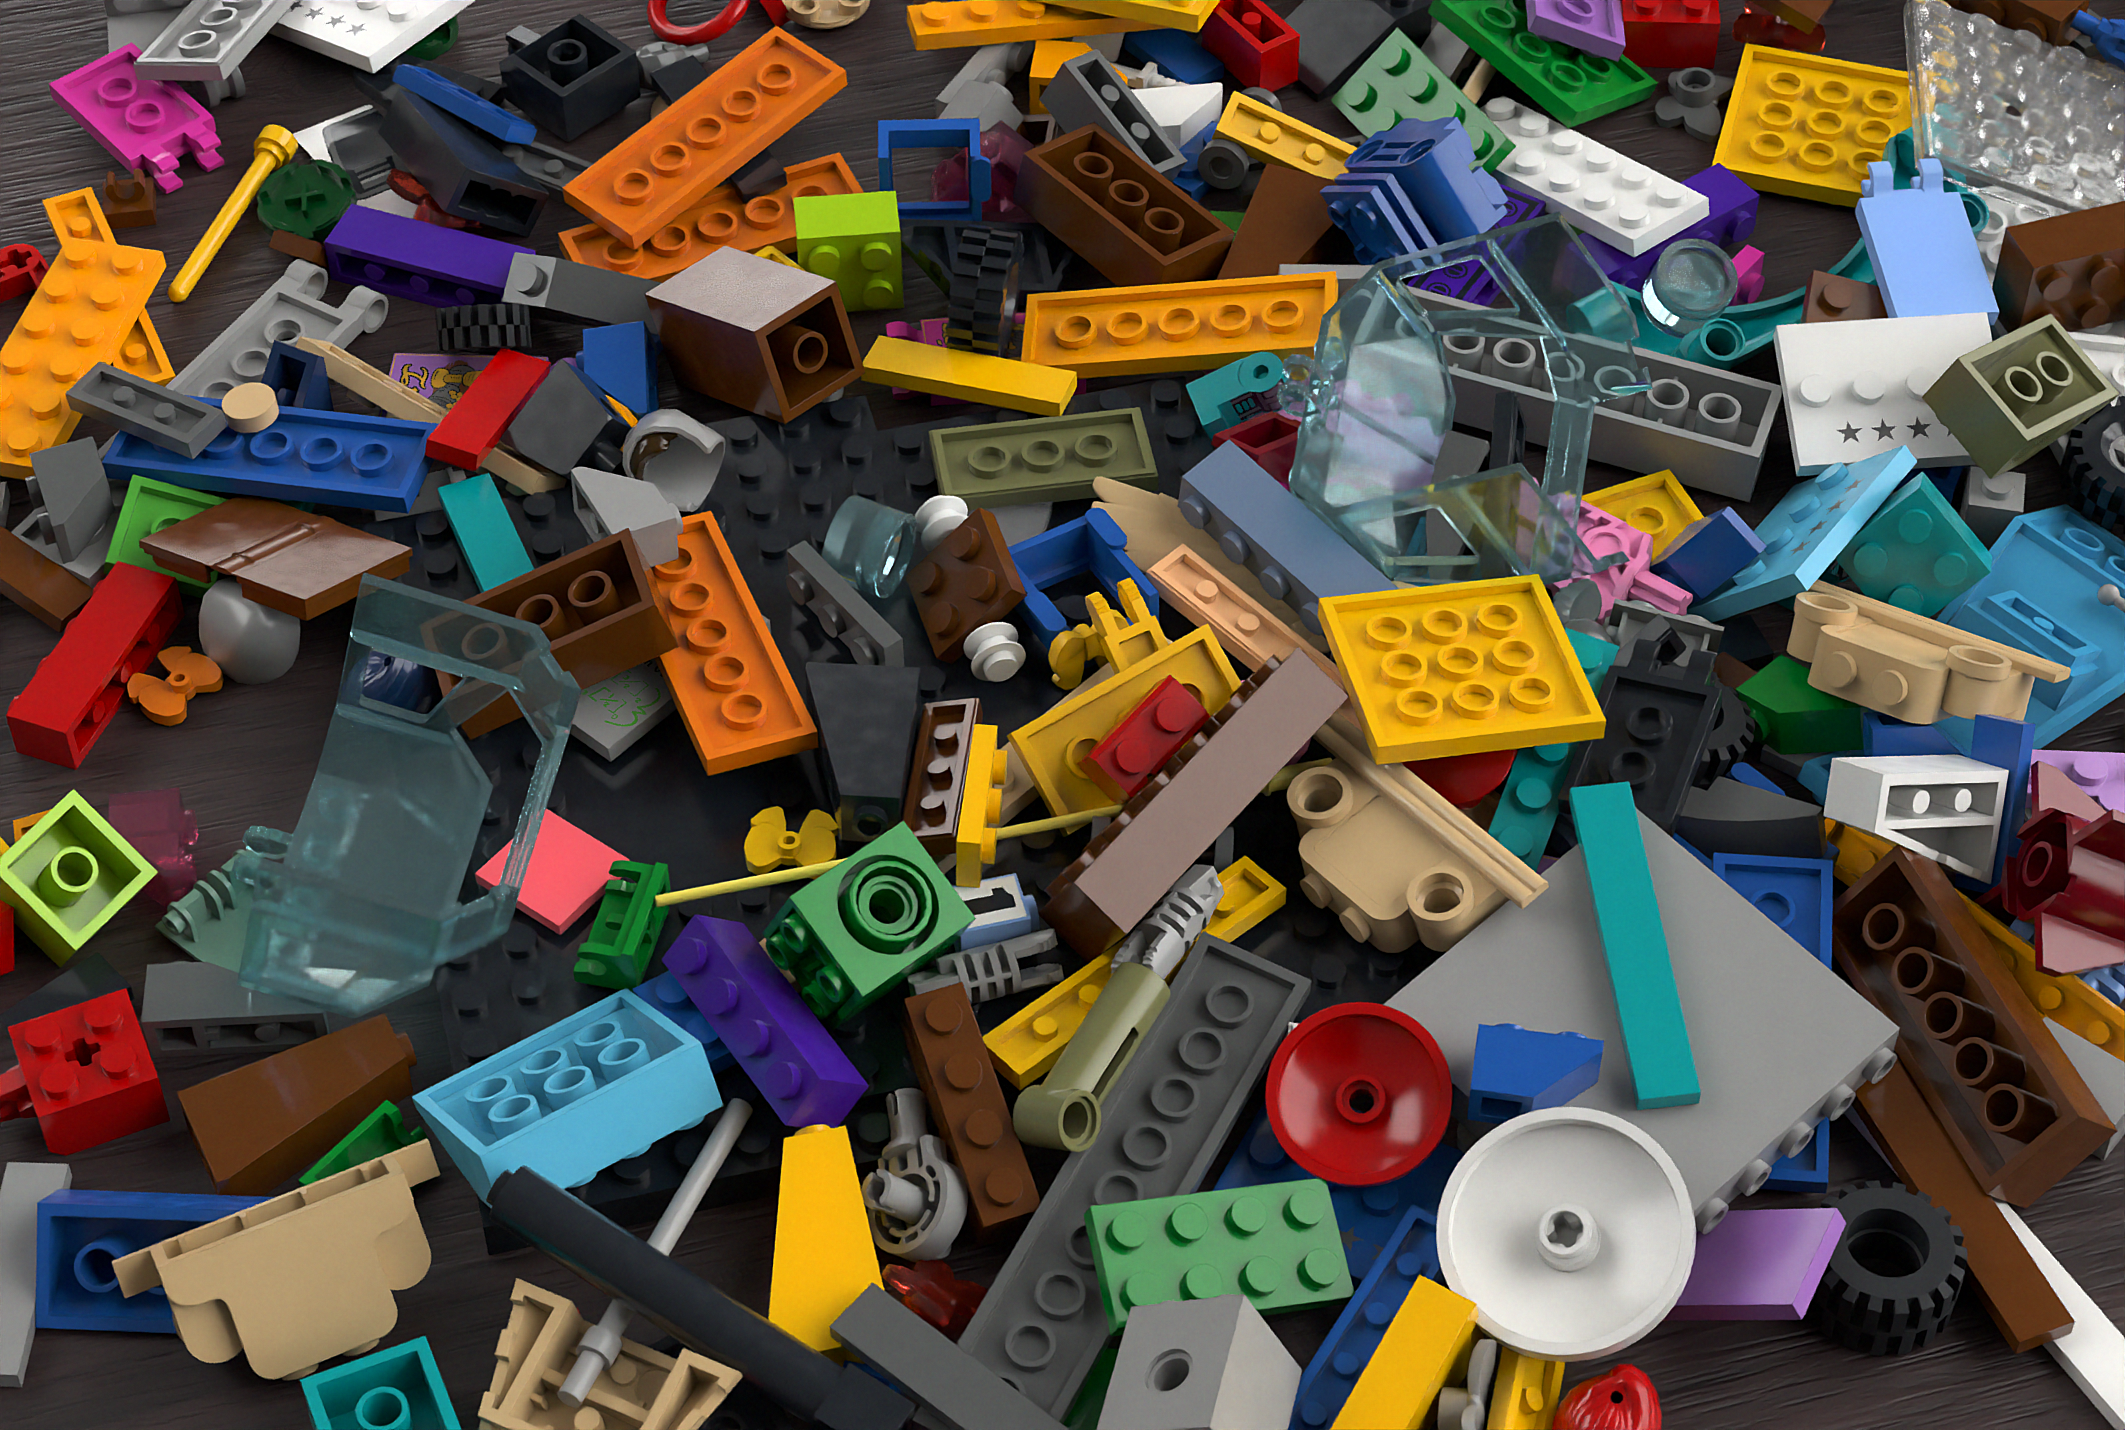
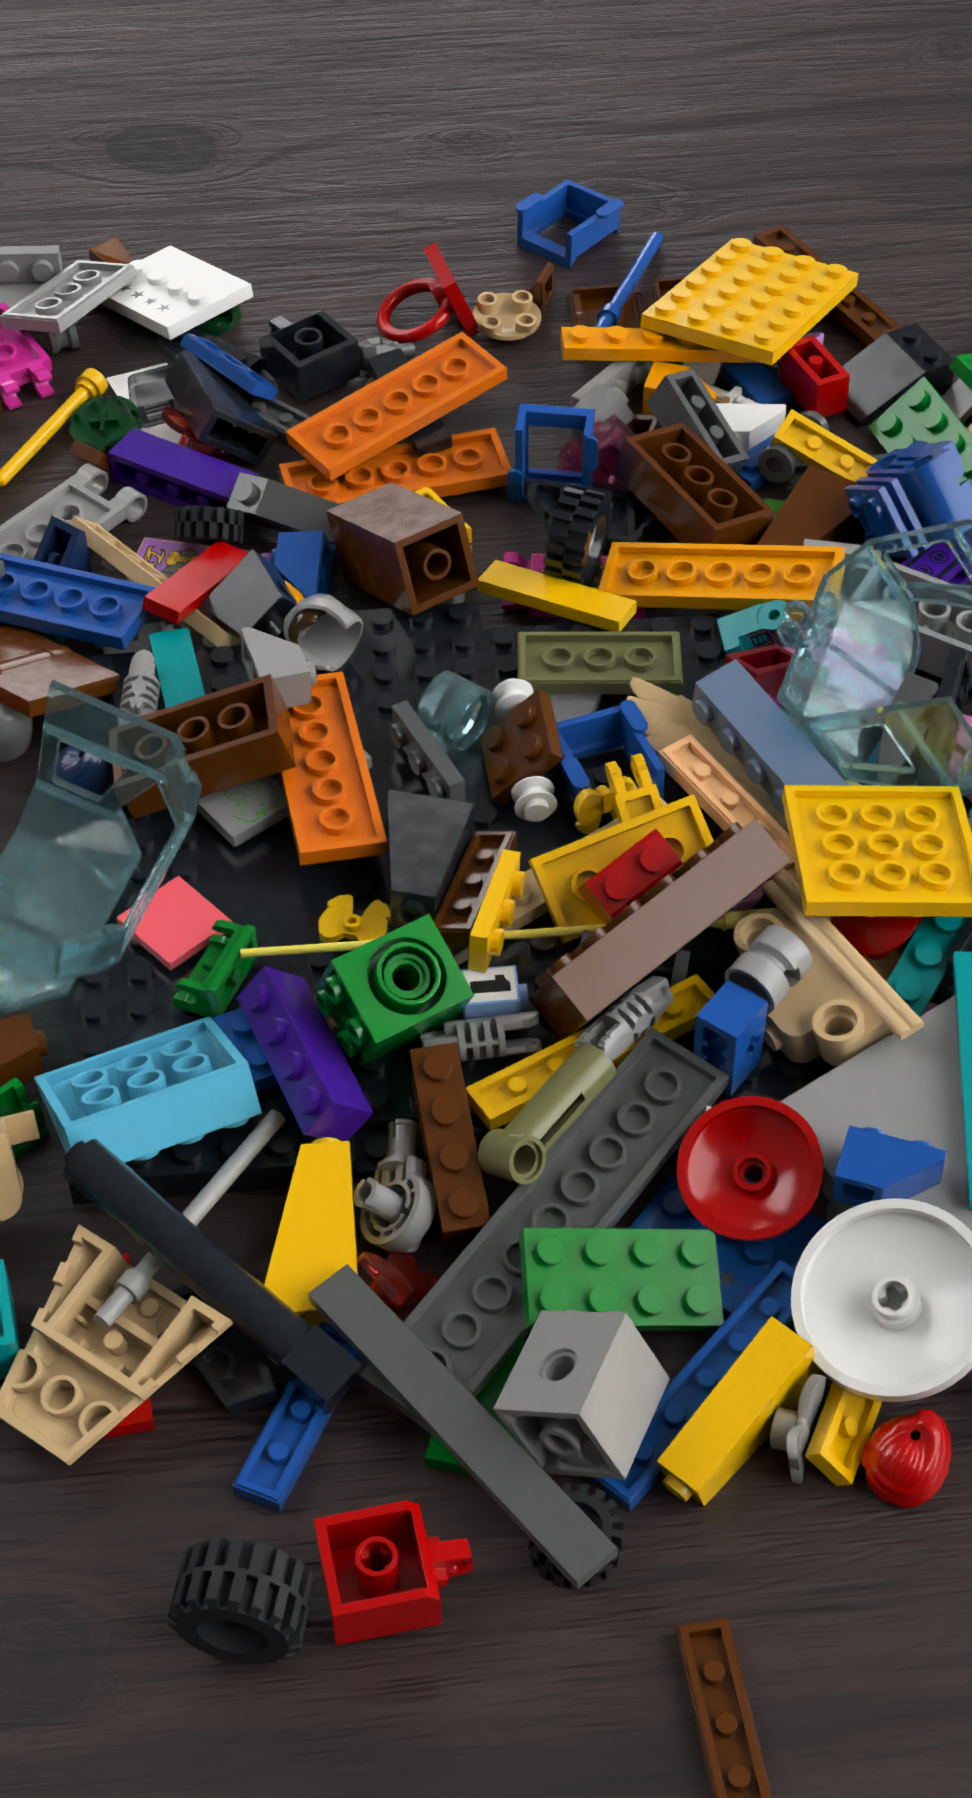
camera: 10 degrees right, 0 degrees up
(250, 407) = (25, 562): tan tile -> none
(443, 560) = (141, 685): none -> light grey hinge
(855, 244) = (489, 495): lime brick -> none
(1307, 924) = (732, 1032): none -> blue brick
(1343, 840) = (772, 966): none -> light grey wheel

